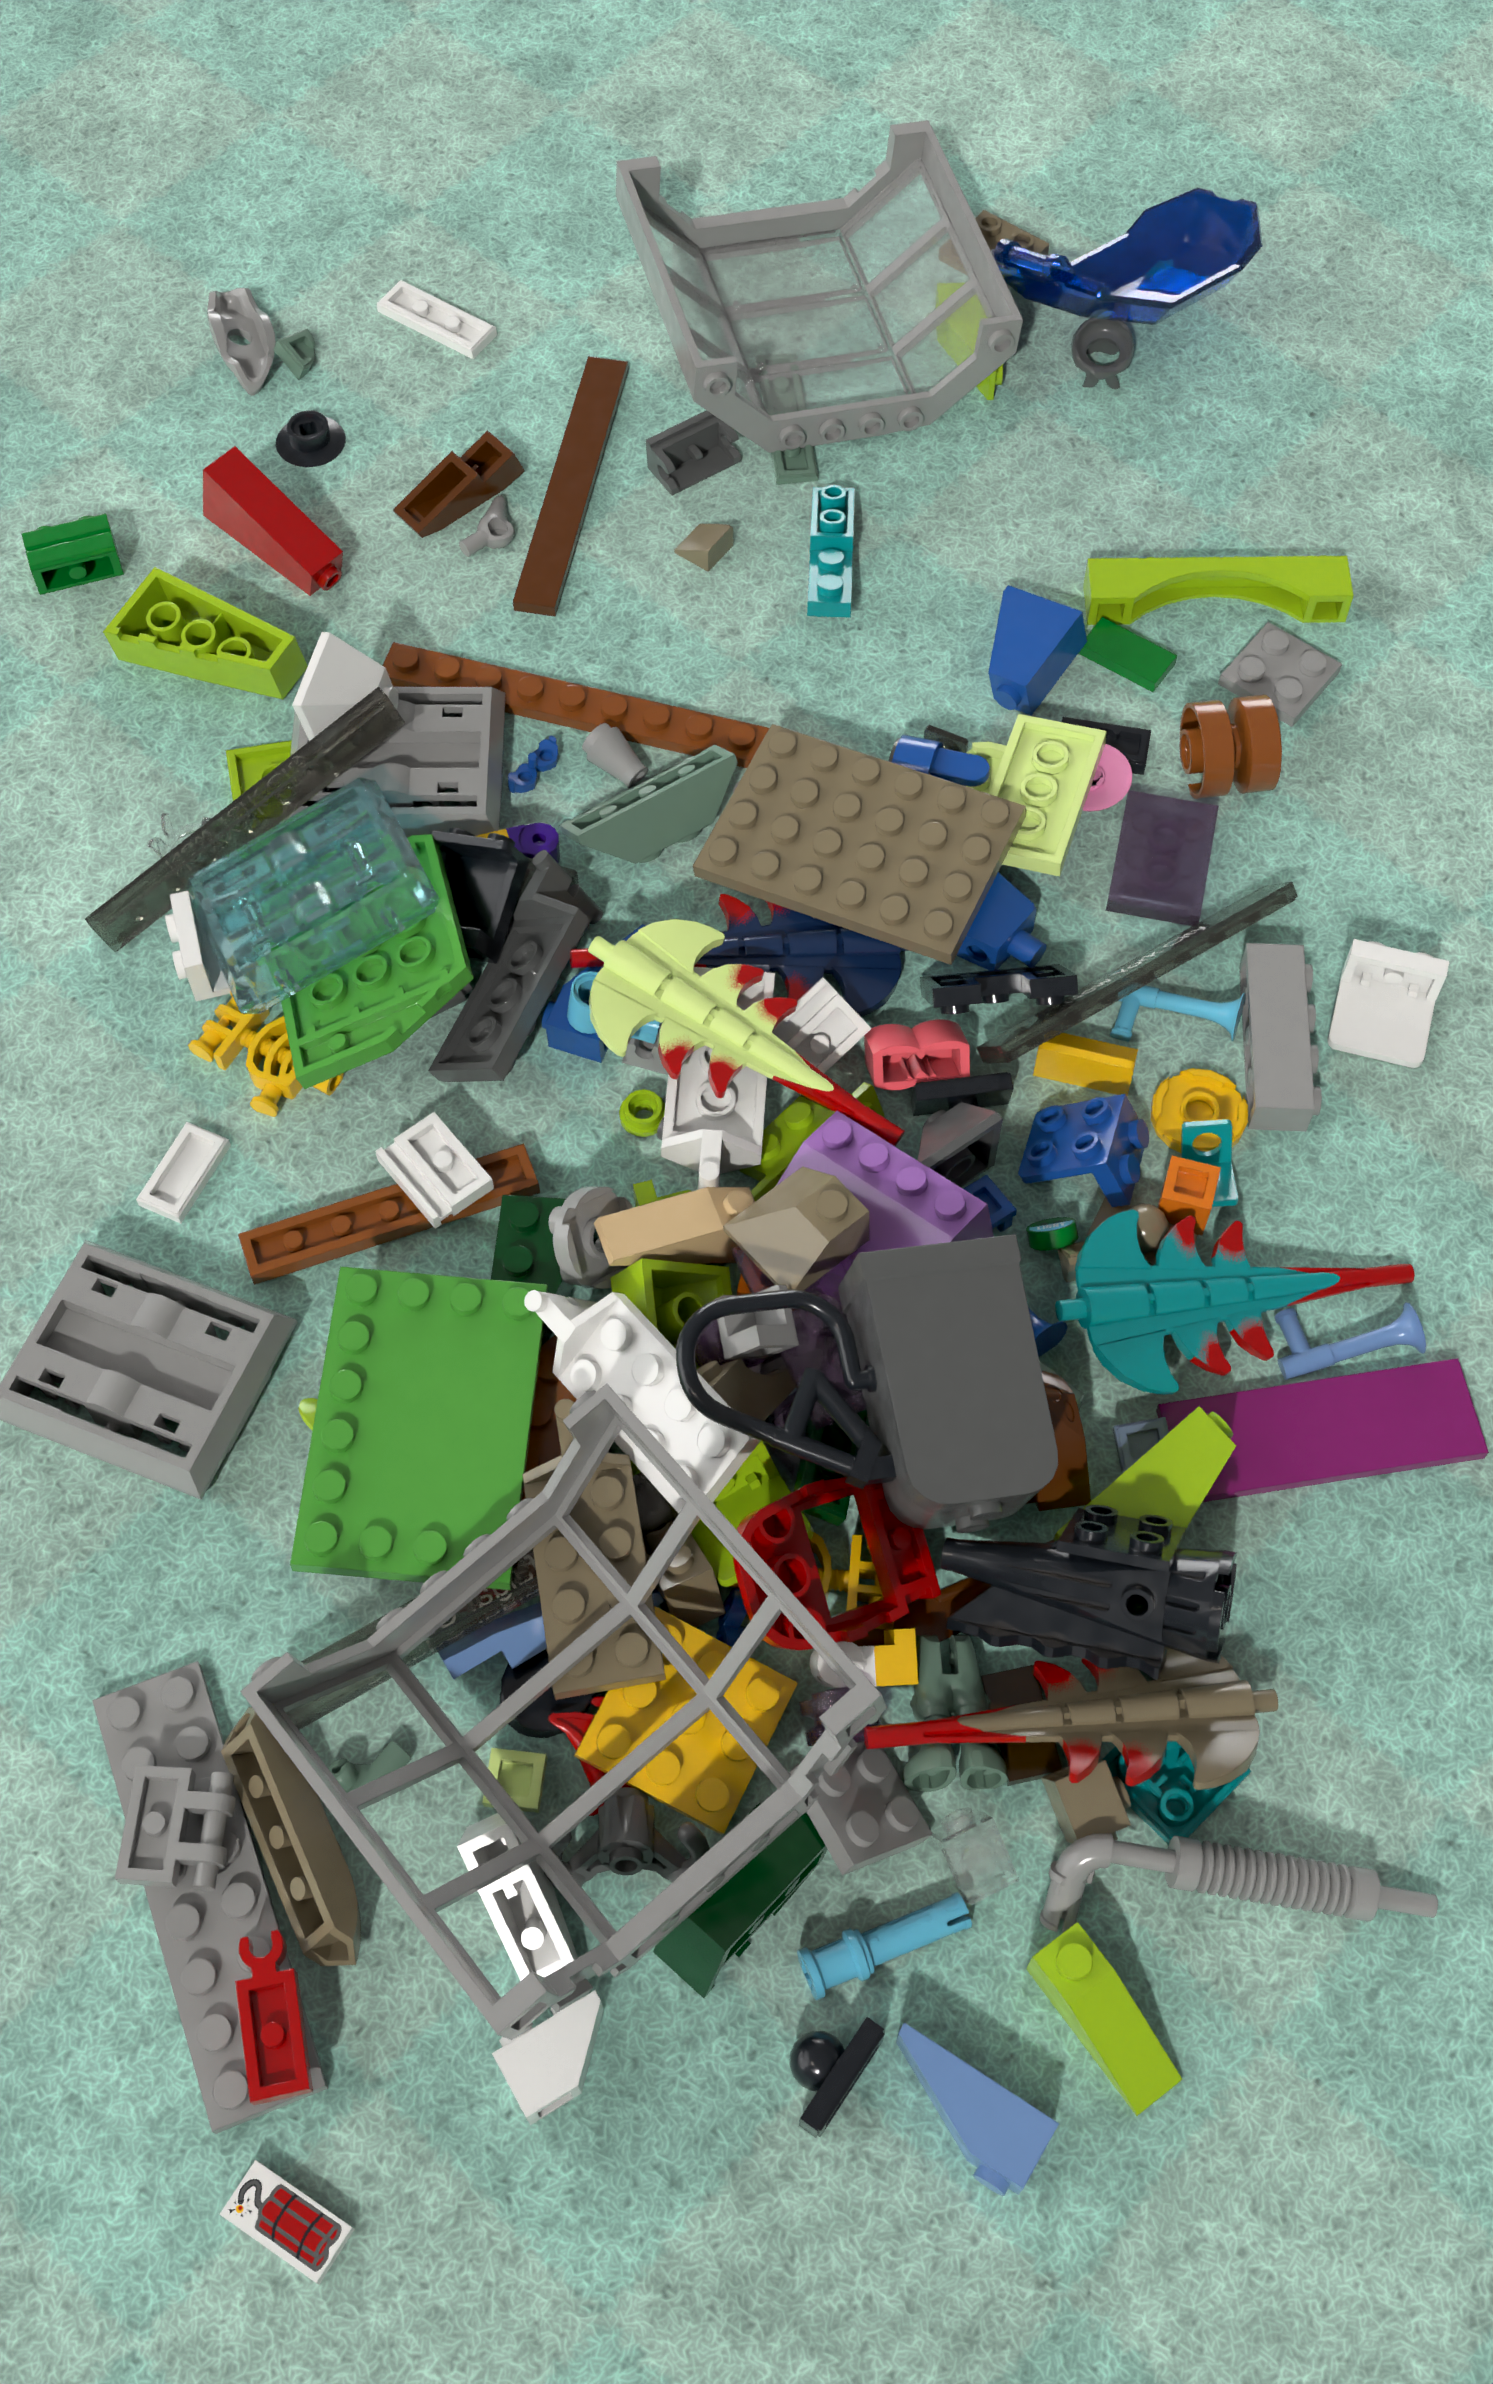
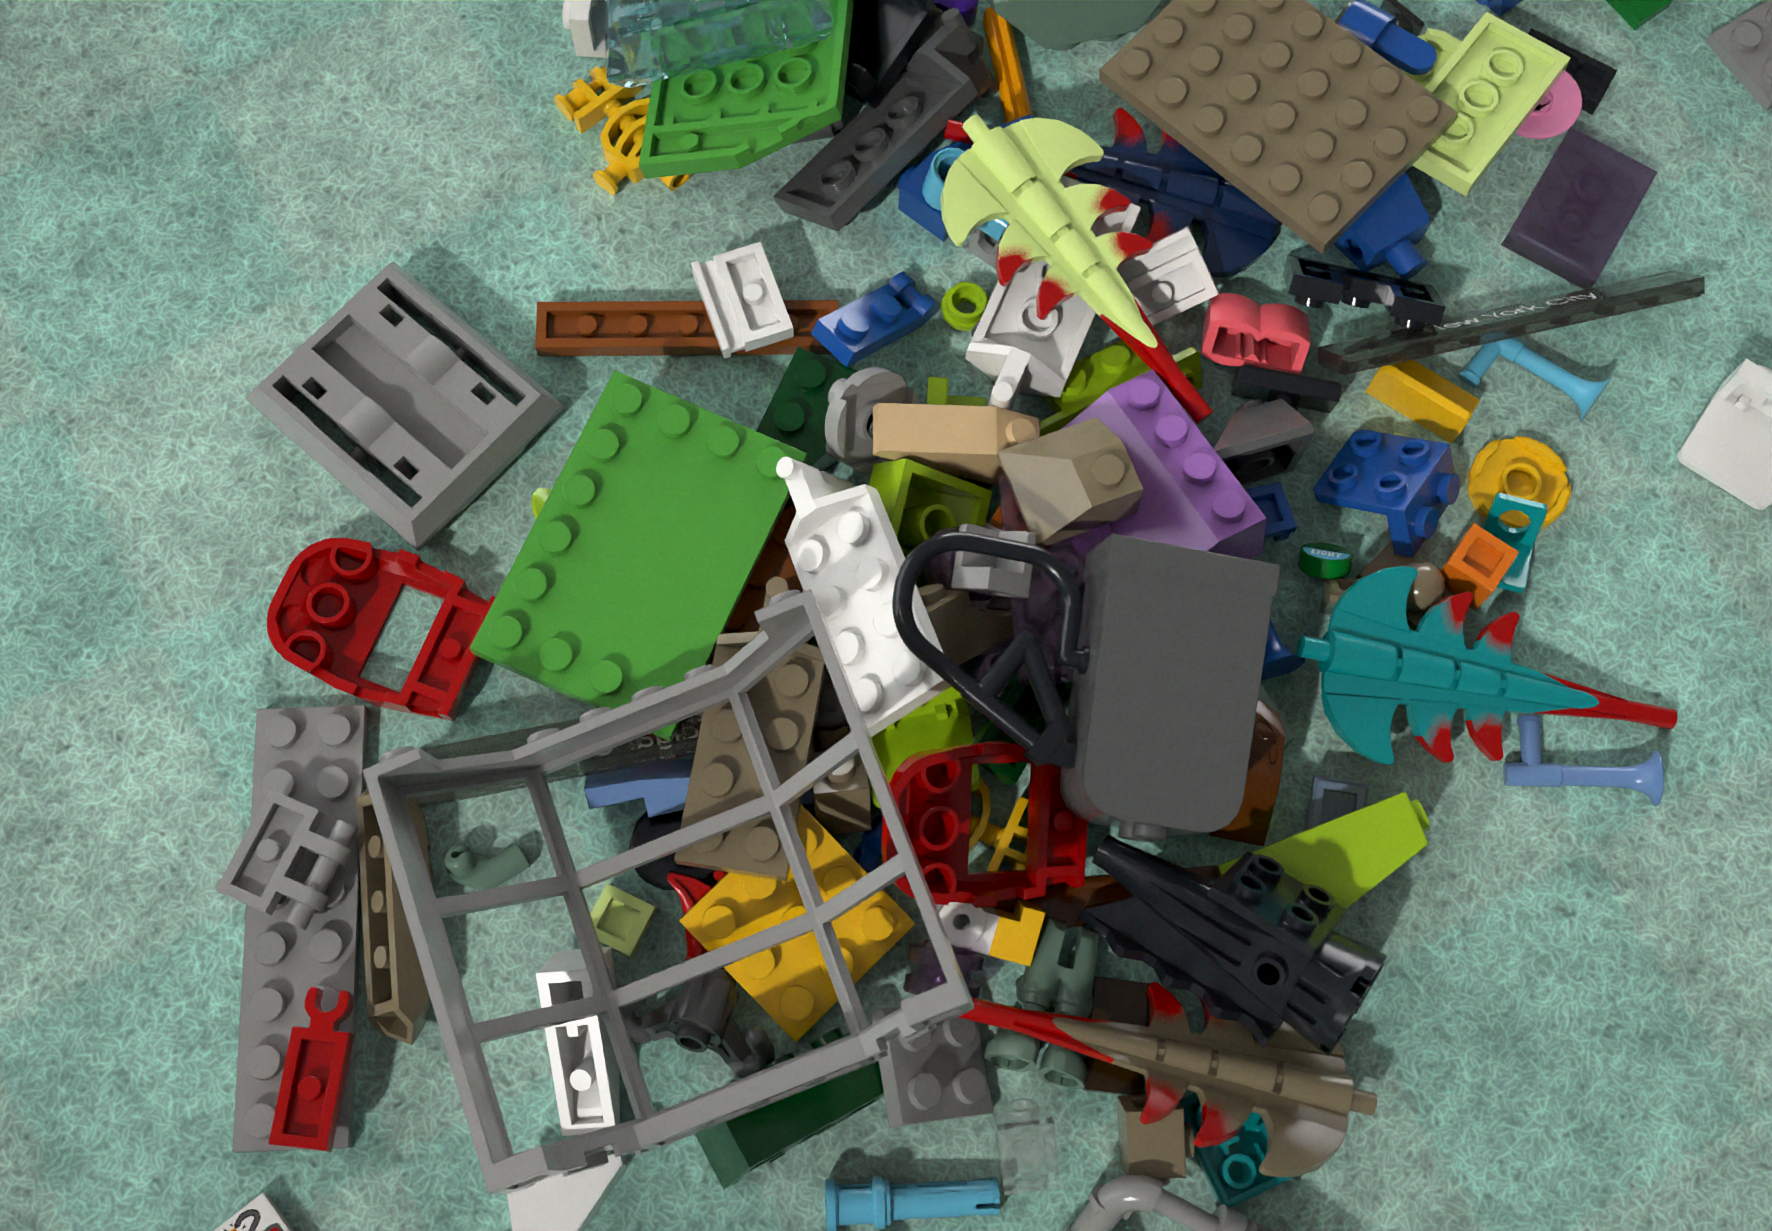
camera: 15 degrees right, 10 degrees up
(139, 1576) = (338, 604): none -> red slope
(183, 1172) = (508, 223): white tile -> none
(565, 1150) = (875, 320): none -> blue plate
(603, 889) = (1006, 66): none -> light orange axle
(1231, 745) = (1695, 112): dark orange wheel -> none
(1277, 1037) = (1628, 433): light grey brick -> none
(1341, 1428) = (1543, 852): magenta tile -> none

